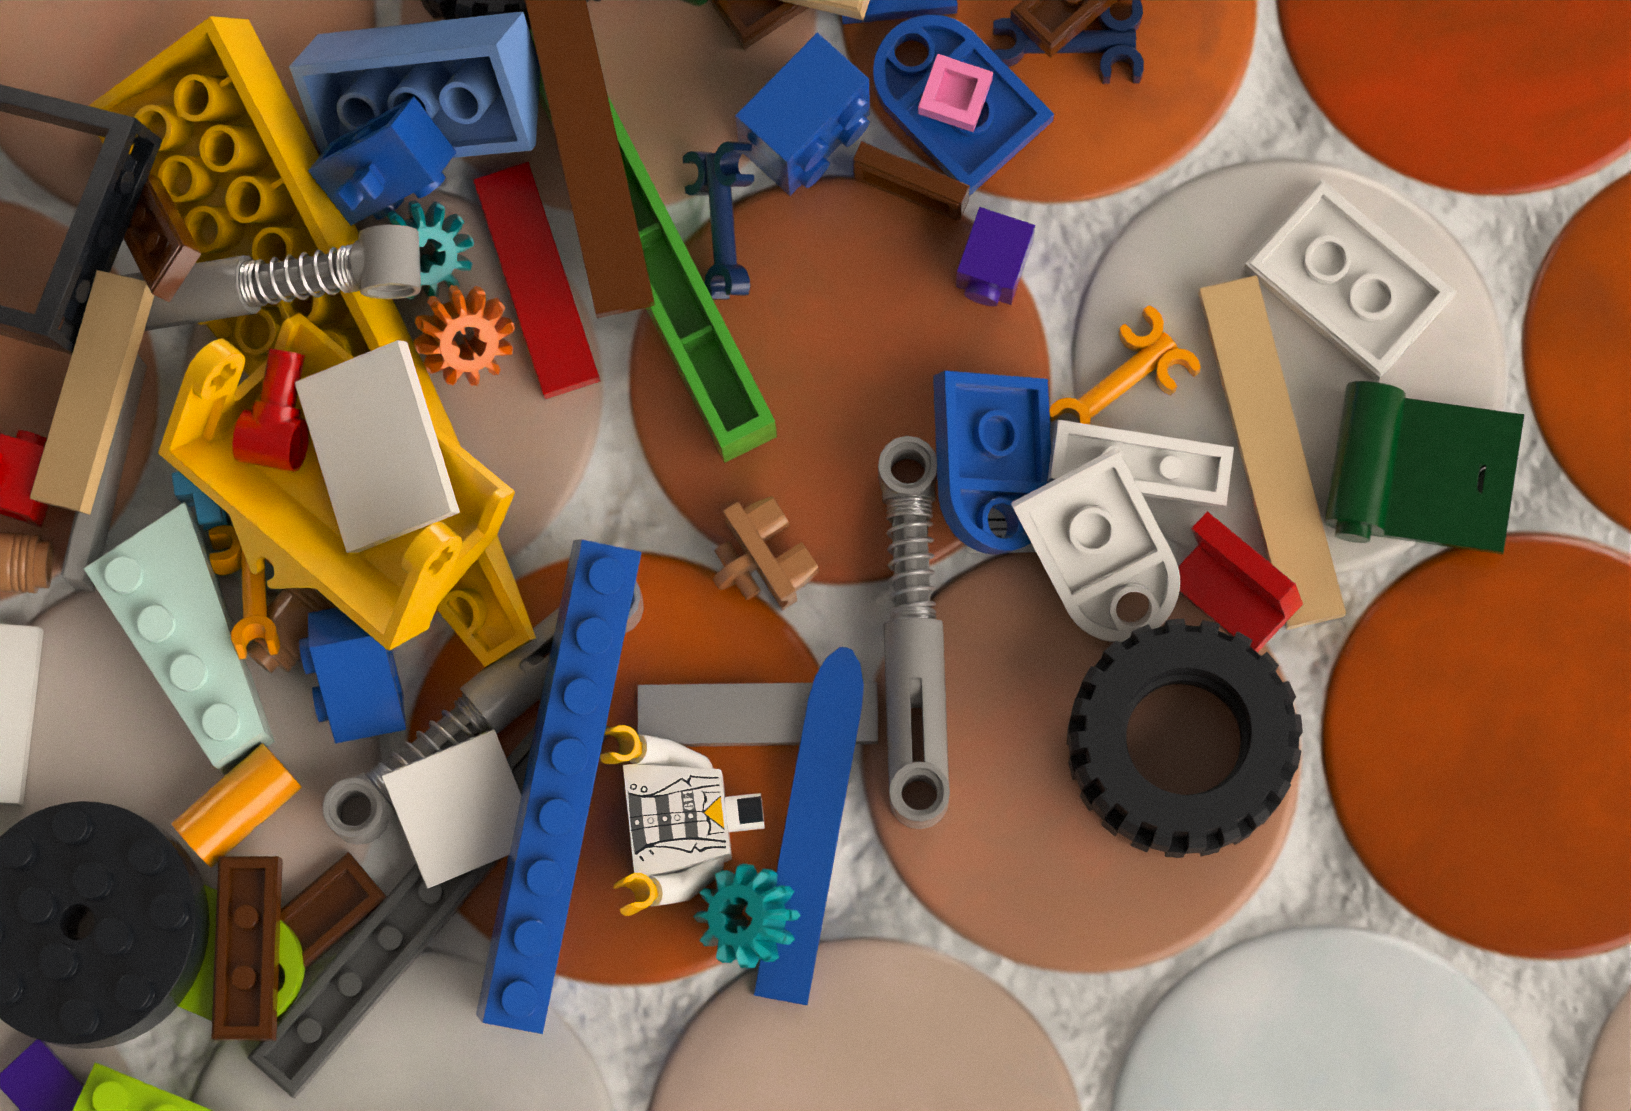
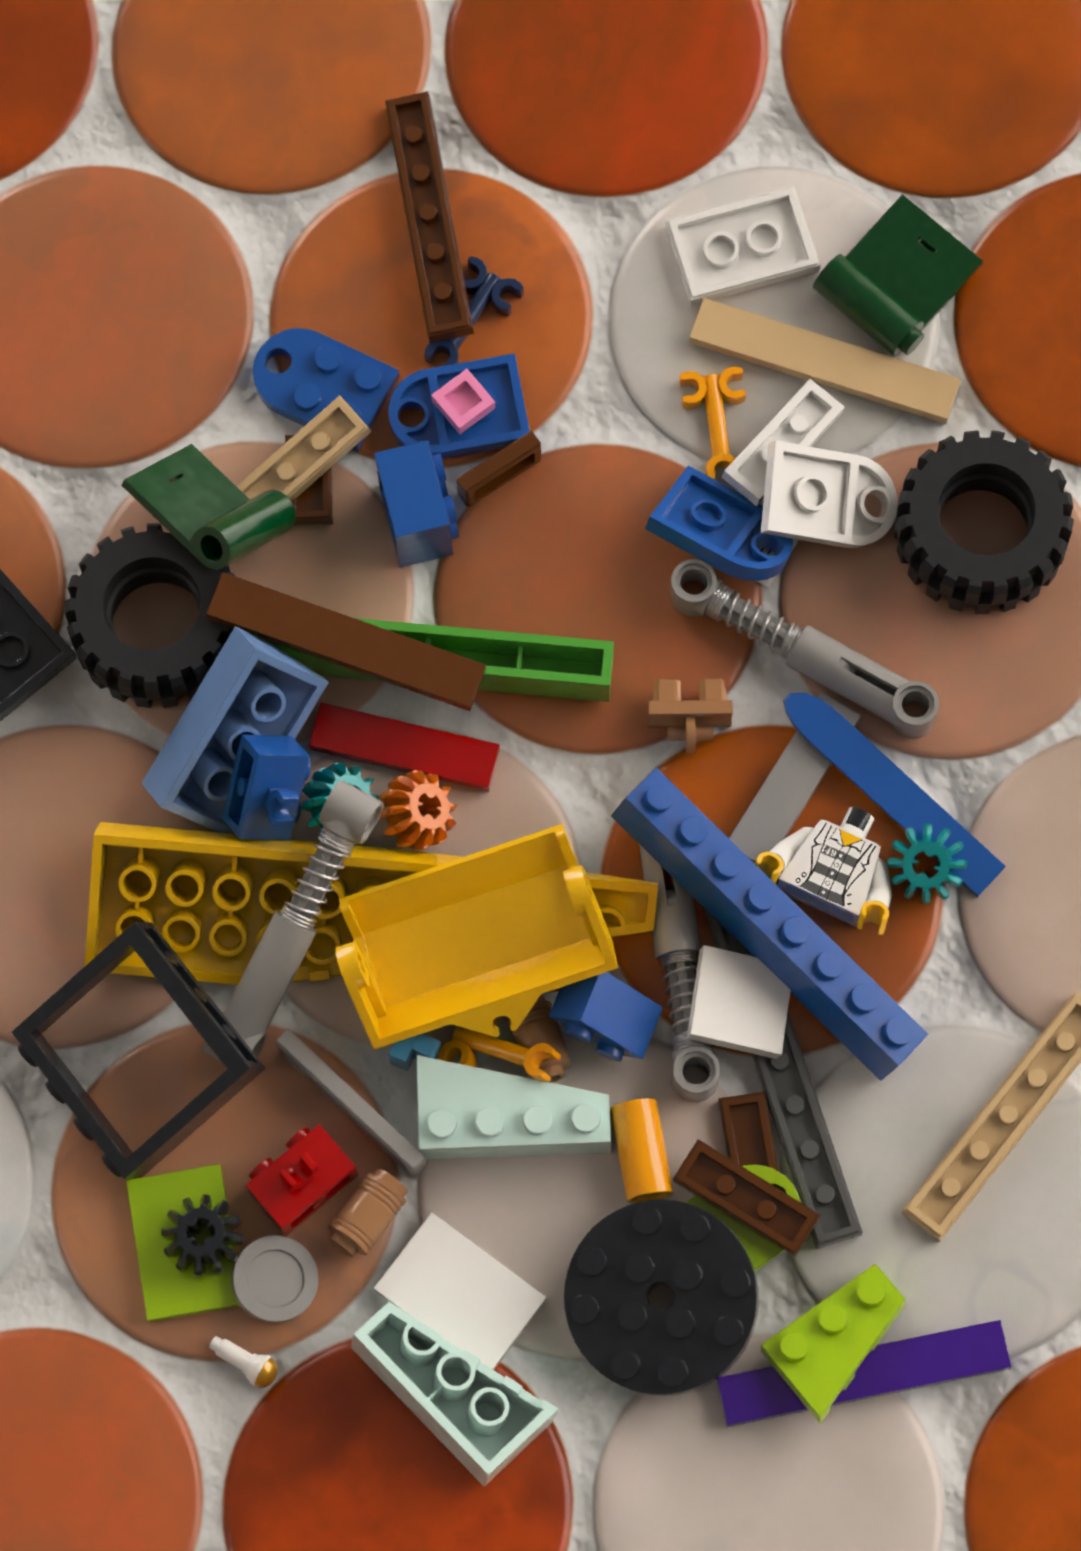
camera: 60 degrees left, 5 degrees down
(93, 392) = (301, 1069): tan tile -> none
(160, 241) = (231, 958): reddish brown tile -> none
(272, 430) = (406, 960): red pin -> none
(377, 447) = (471, 897): white tile -> none
(715, 178) = (415, 586): dark blue bar -> none
(994, 257) = (586, 448): dark purple brick -> none
(1236, 584) = (899, 429): red panel -> none

